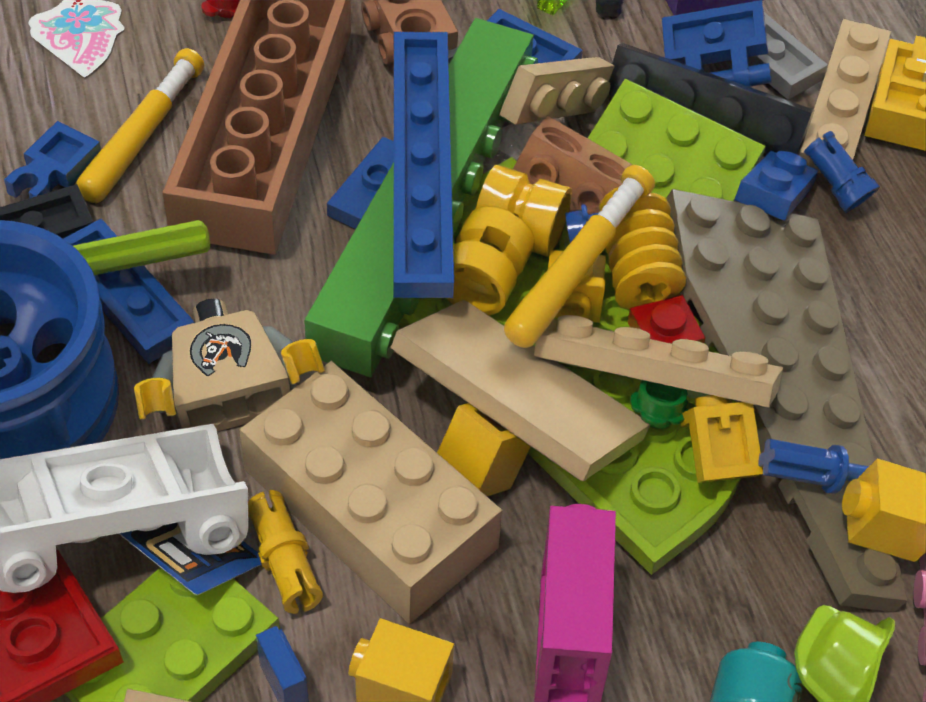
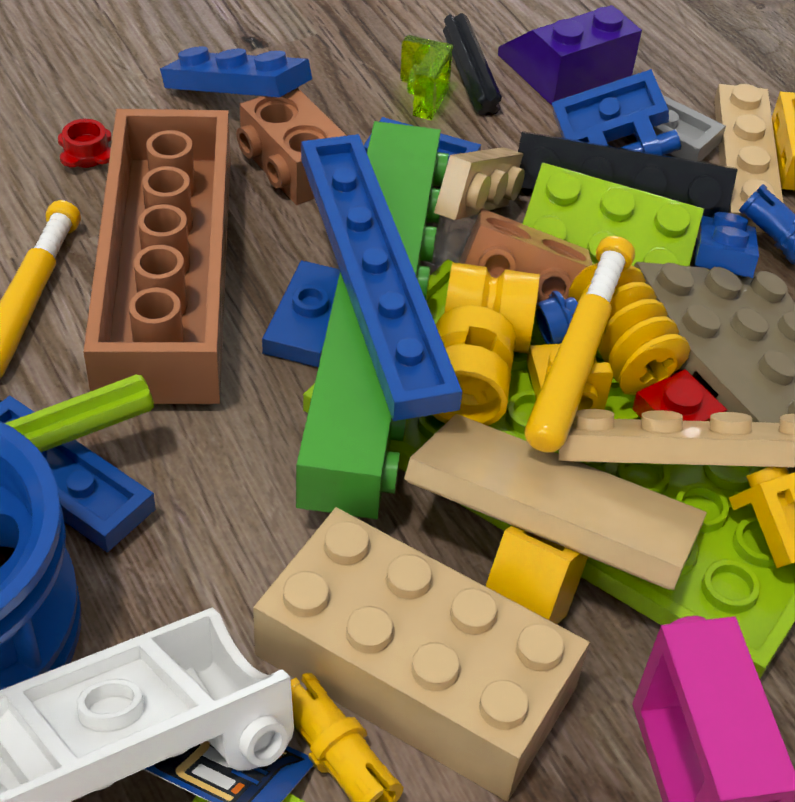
camera: 15 degrees left, 5 degrees down
(224, 369) = (211, 540): torso -> none
(659, 404) = (709, 487): green plate -> none

